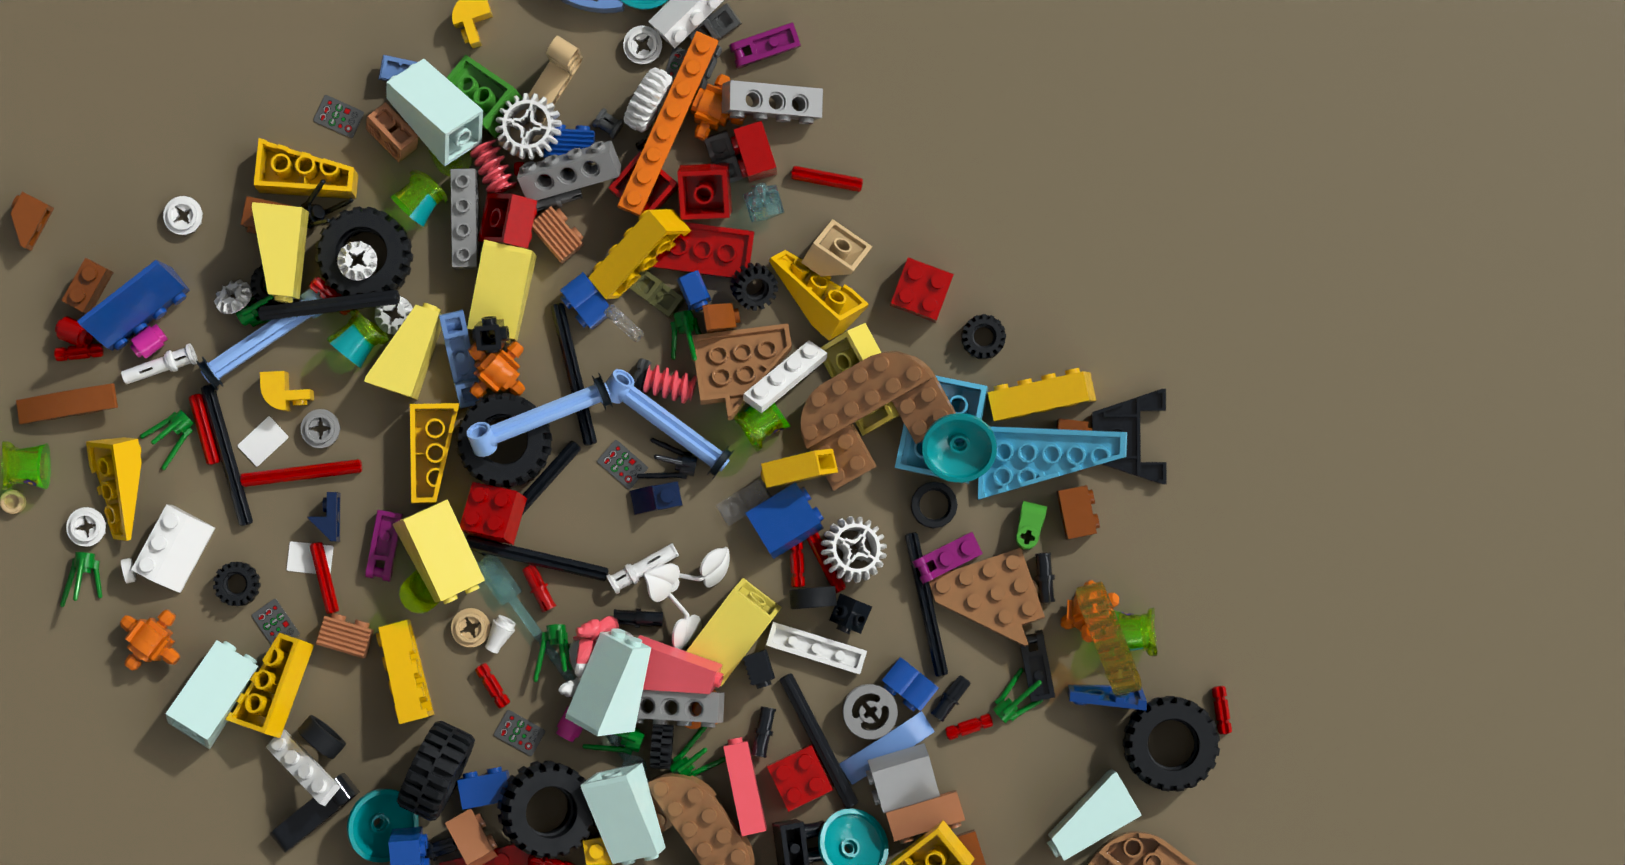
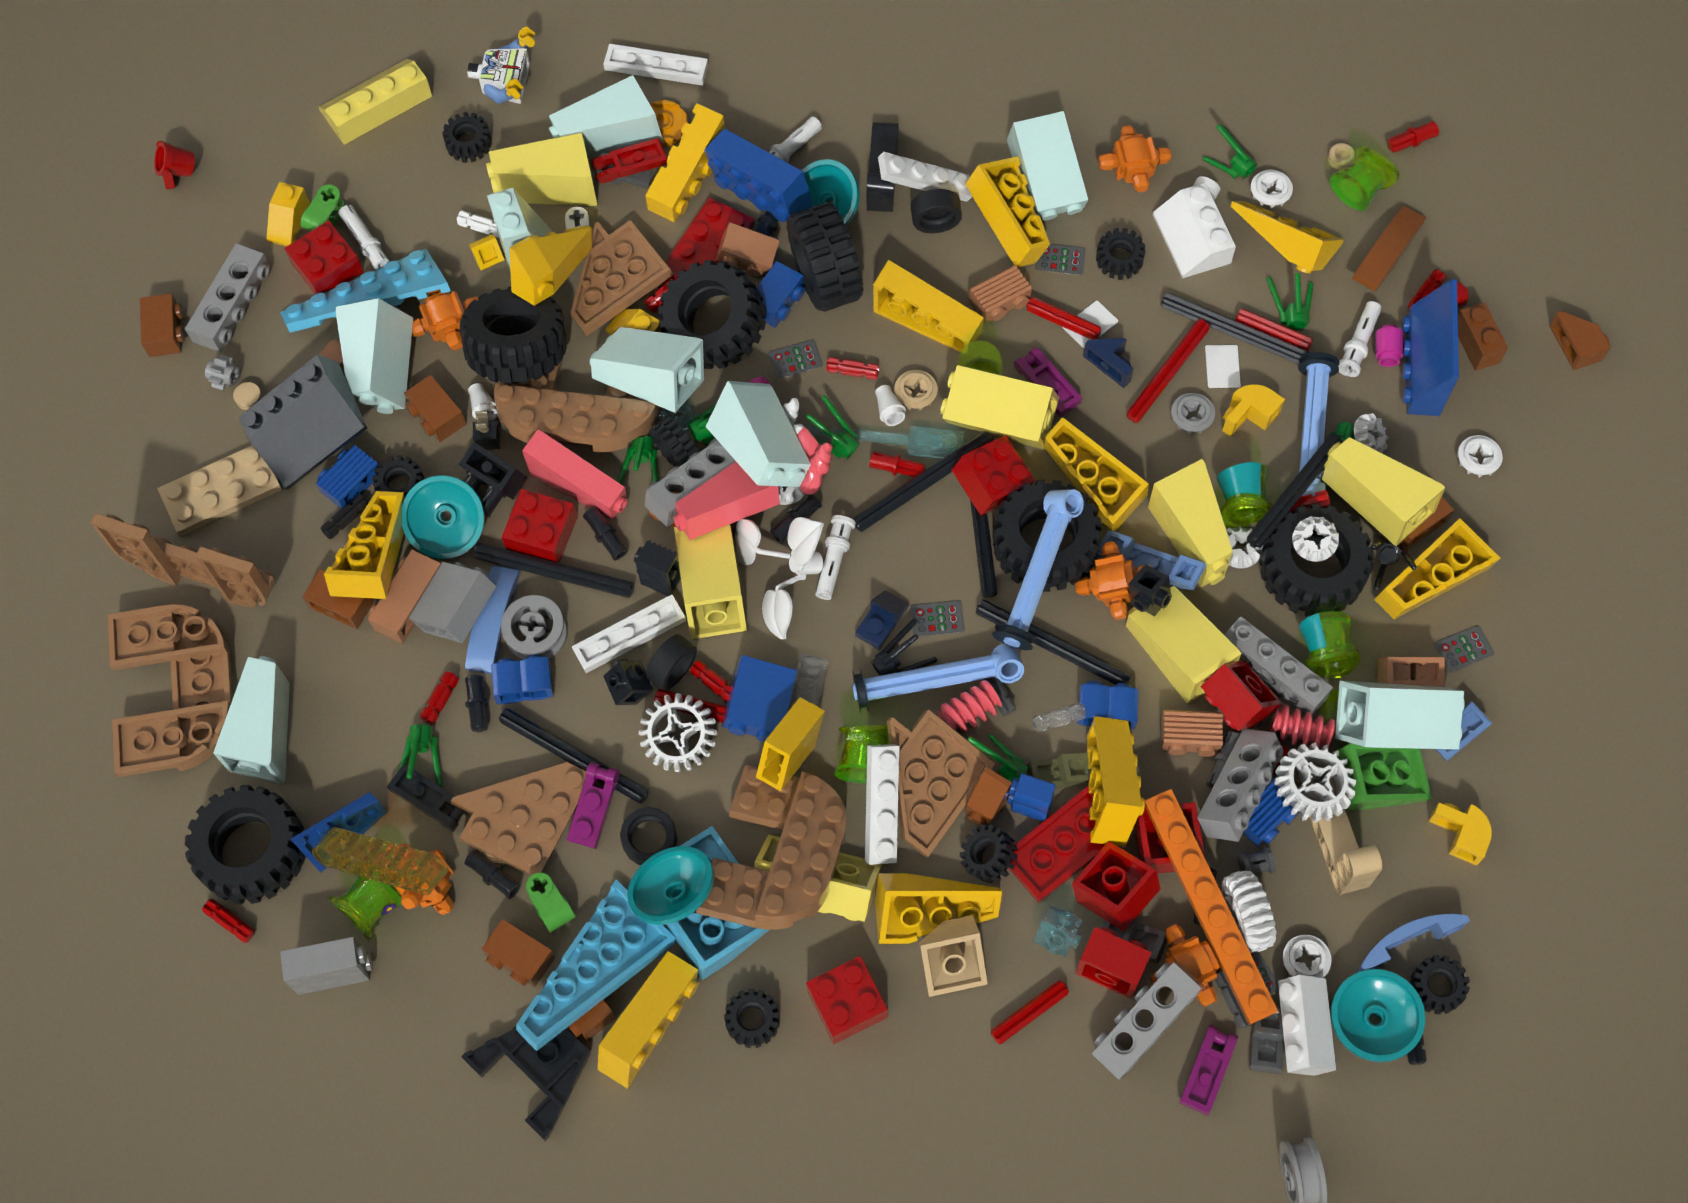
camera: 135 degrees right, 20 degrees down
(1193, 615) = (325, 965): none -> light grey brick

